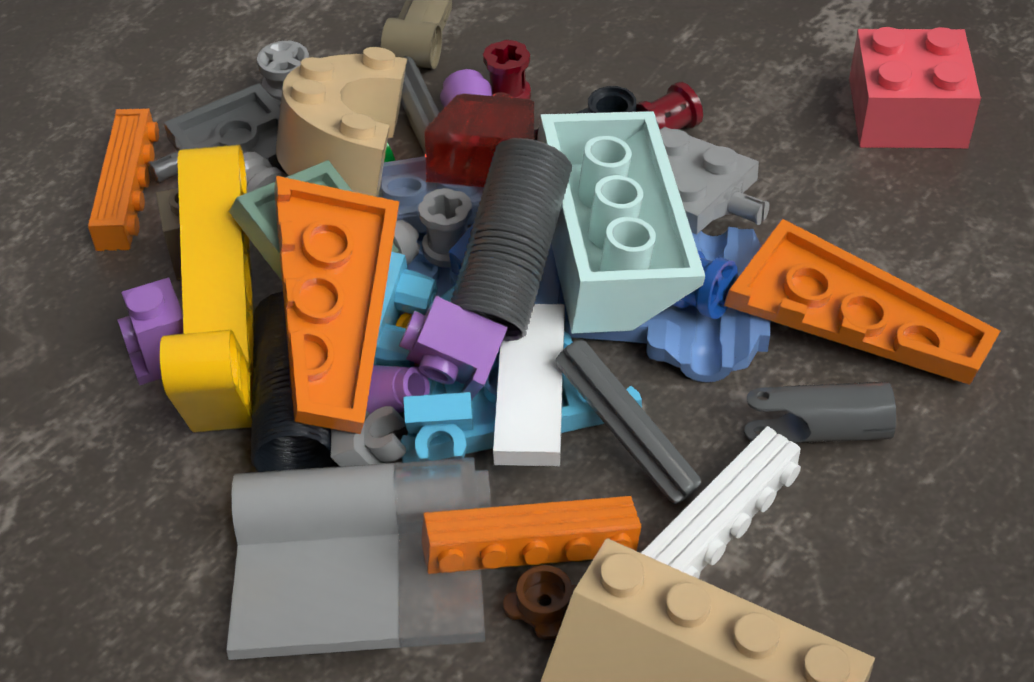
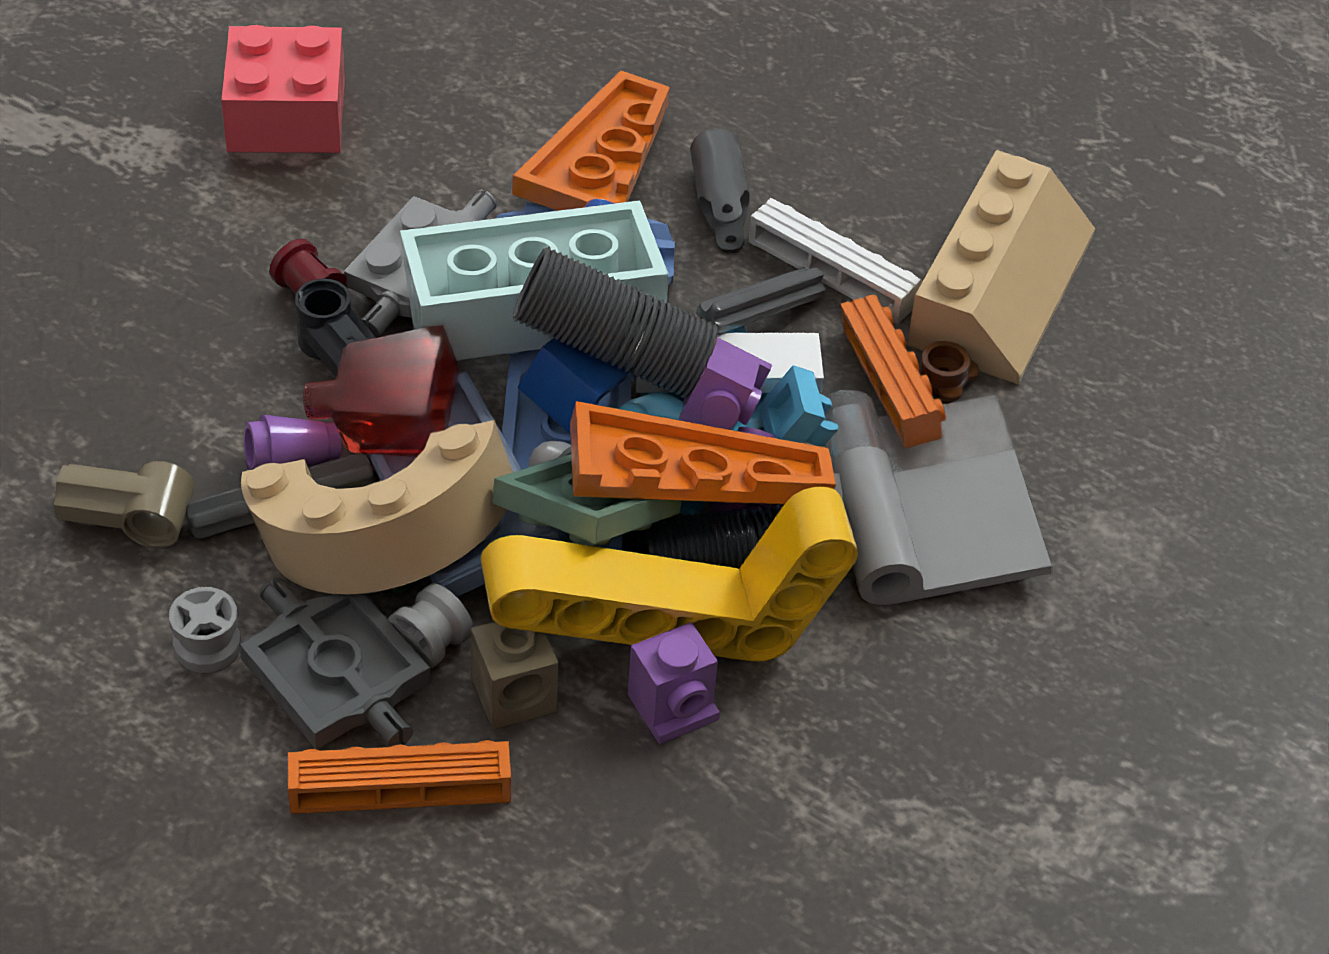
camera: 100 degrees left, 0 degrees up
(446, 219) = (541, 417): light grey bush -> none
(507, 67) = (224, 400): dark red bush -> none

